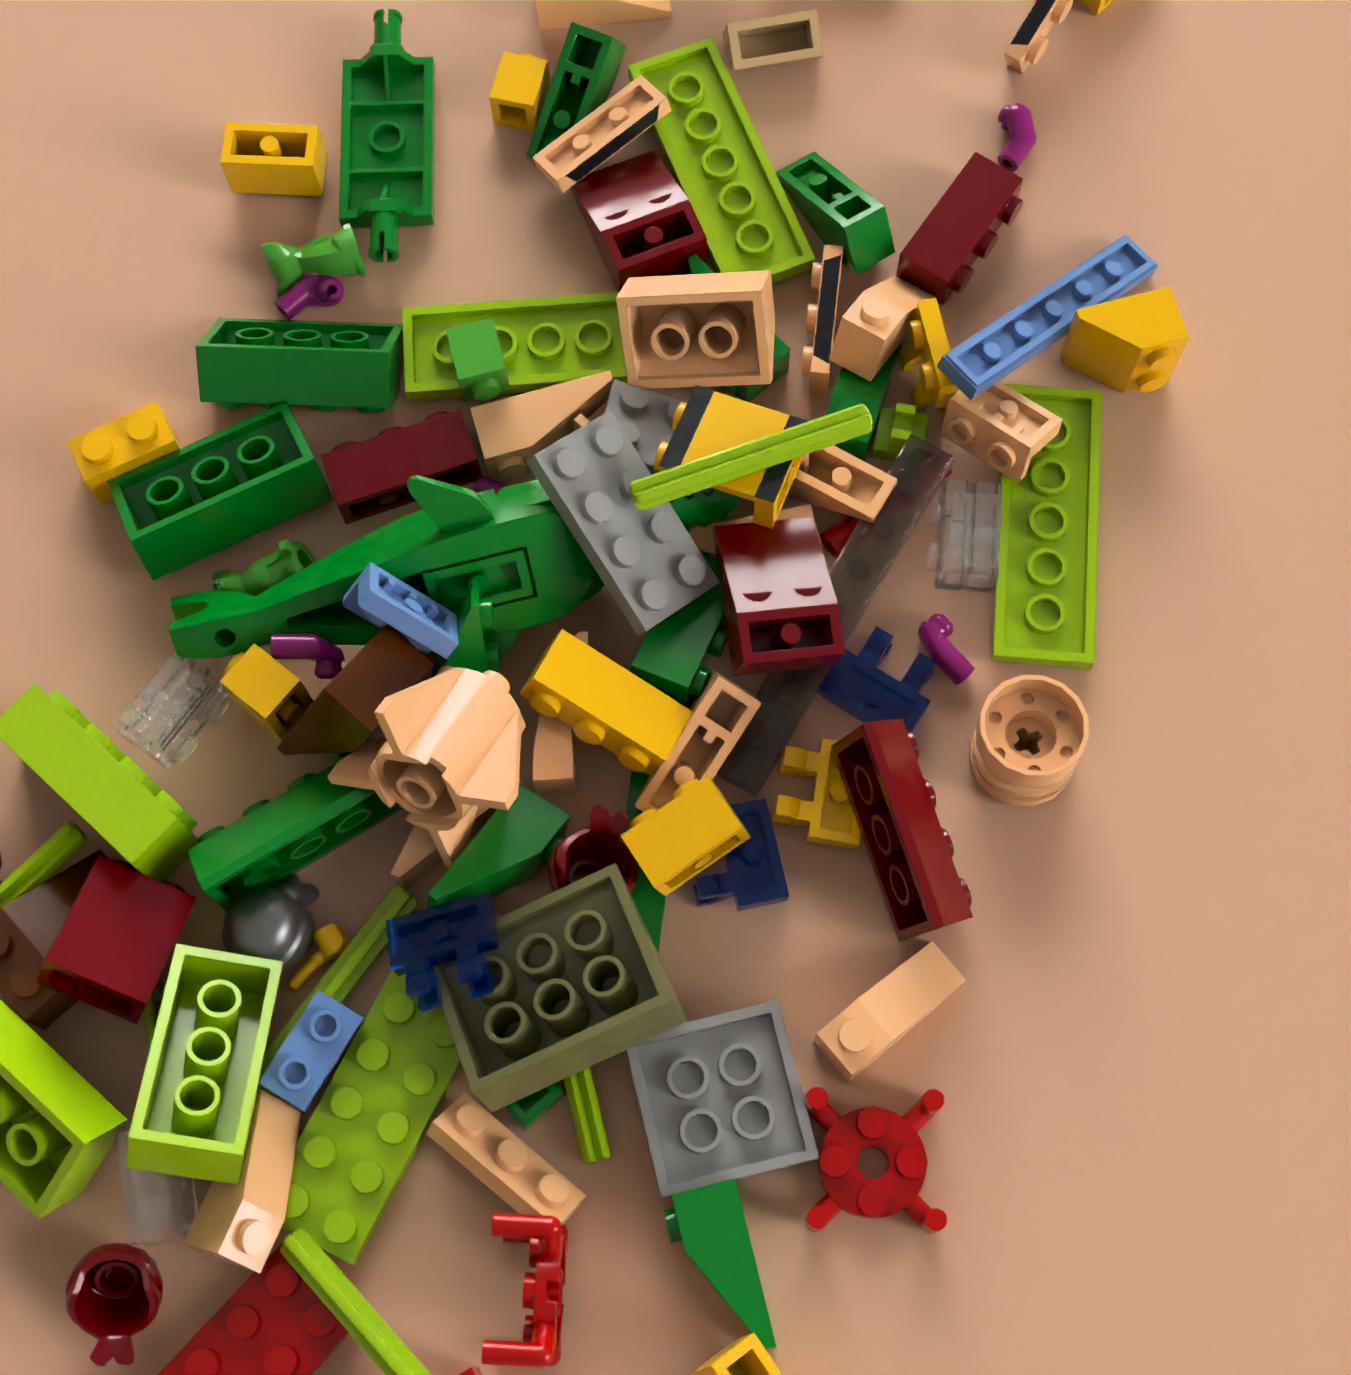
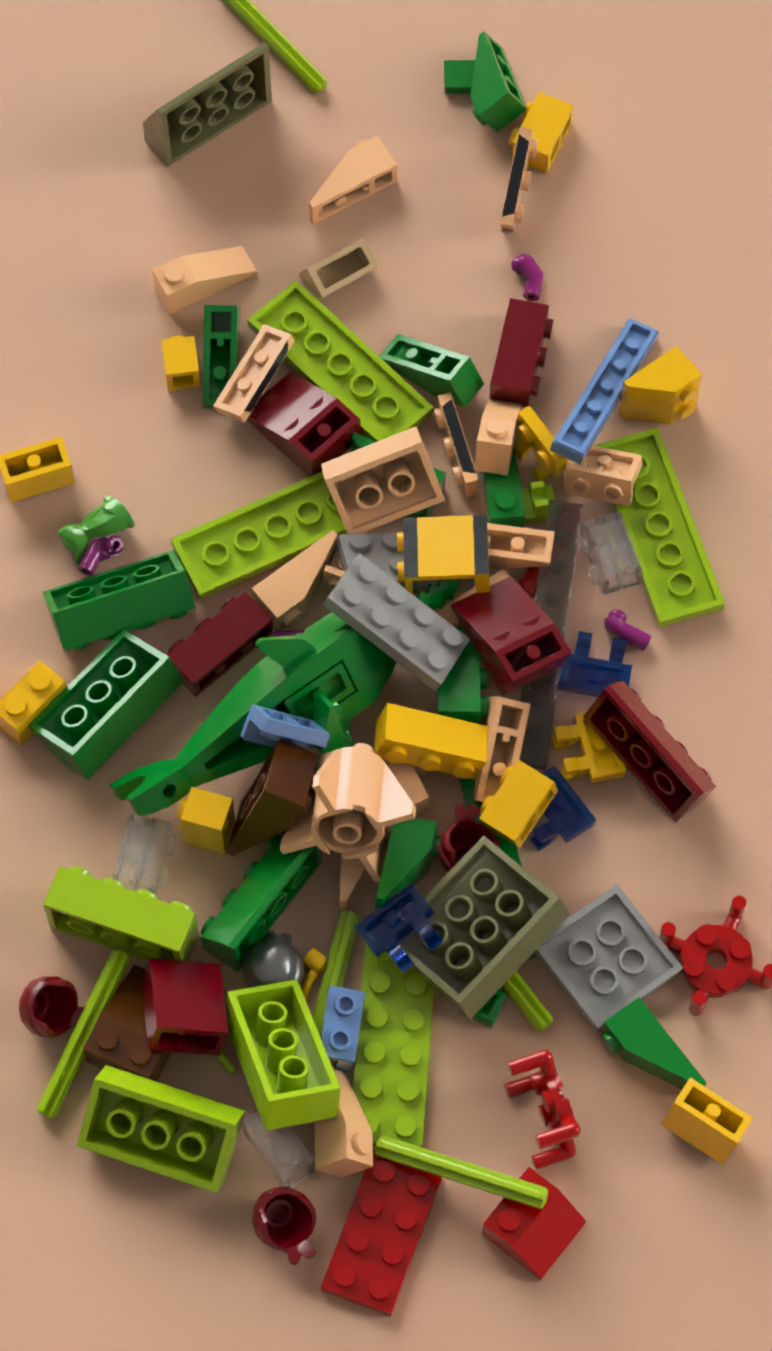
camera: 25 degrees left, 5 degrees down
(266, 571) = (163, 747): bright green animal -> none
(310, 647) = (227, 777): magenta arm -> none
(387, 139) = (103, 428): green plate -> none
(478, 360) = (243, 555): bright green brick -> none
(504, 1161) = (483, 1046): light nougat plate -> none
(750, 457) = (462, 550): lime axle -> none
(888, 1011) = (686, 867): light nougat slope -> none
(1032, 715) = (705, 666): light nougat wheel -> none

